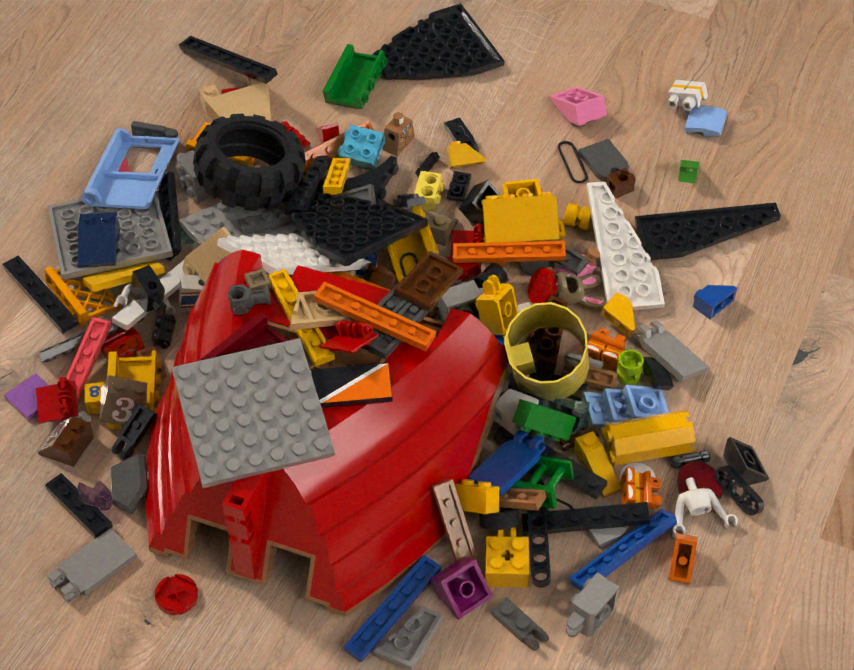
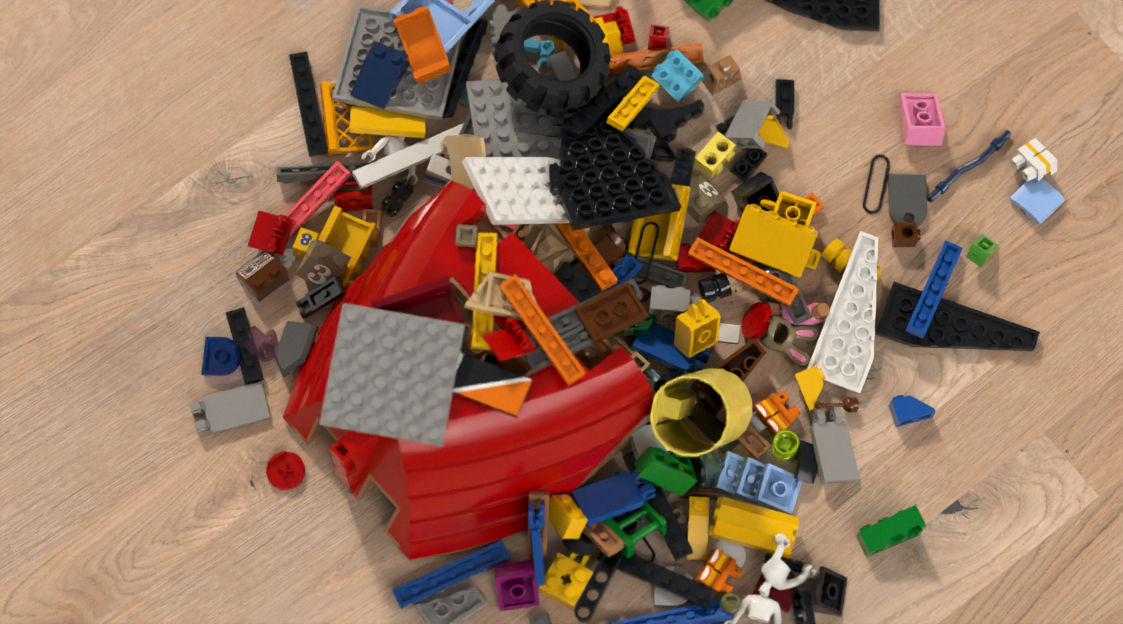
camera: 25 degrees right, 20 degrees up
(24, 397) = (248, 207): medium lavender tile -> none
(58, 524) = (220, 356): none -> clear blue tile
(133, 209) = (422, 44): none -> orange panel
(147, 290) = (394, 160): black torso -> none
(243, 299) = (449, 253): dark grey connector -> none
(307, 241) = (554, 179): none -> black axle
(443, 155) = (748, 122): none -> light grey panel
(463, 526) = (536, 521): none -> blue tile
(627, 140) = (943, 186): none -> dark blue bar
(659, 315) = (849, 404): none -> reddish brown hinge
(668, 508) = (730, 603): none -> olive tile
(672, 206) = (934, 289): none -> blue plate
(691, 460) = (776, 570): none -> white piece
(765, 389) = (891, 531): none -> green wedge

